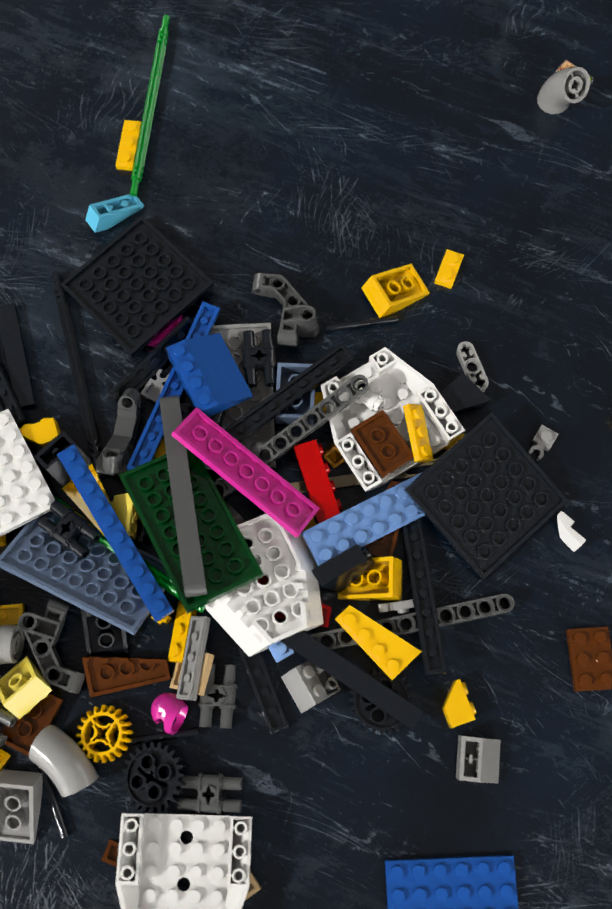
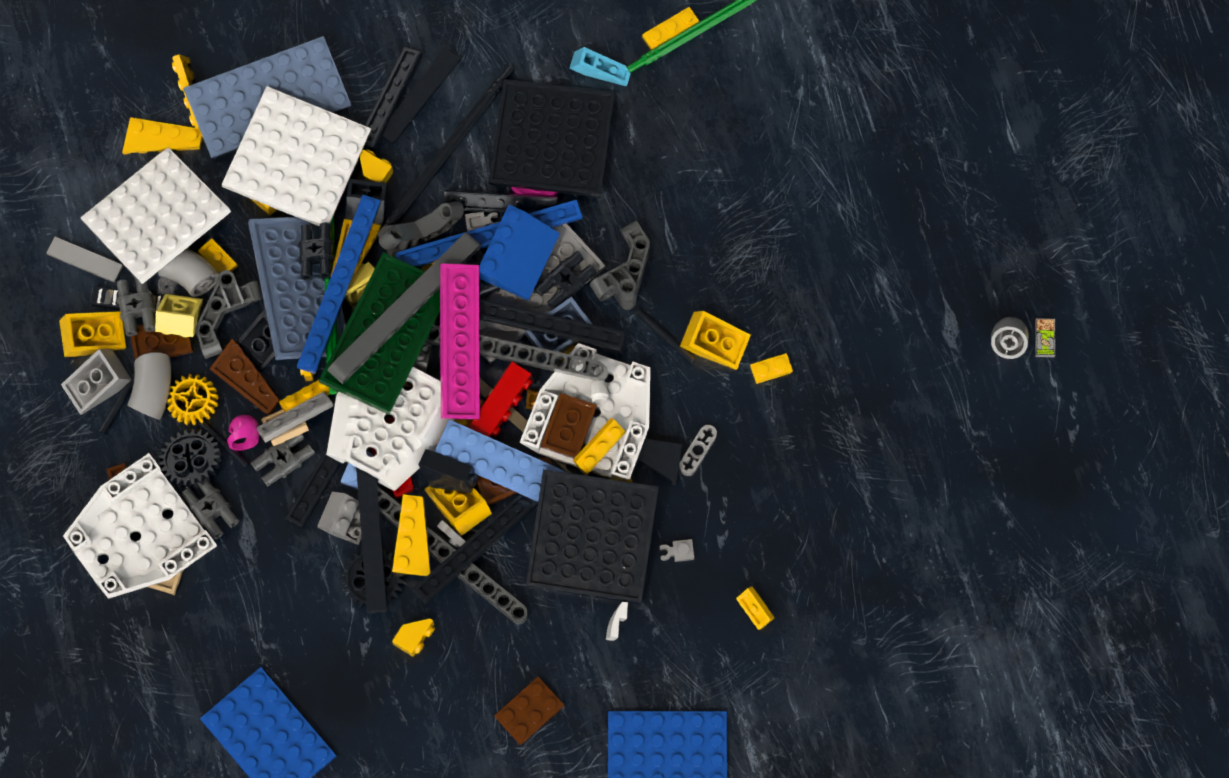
camera: 50 degrees right, 0 degrees up
(478, 759) = (385, 679): light grey slope -> none

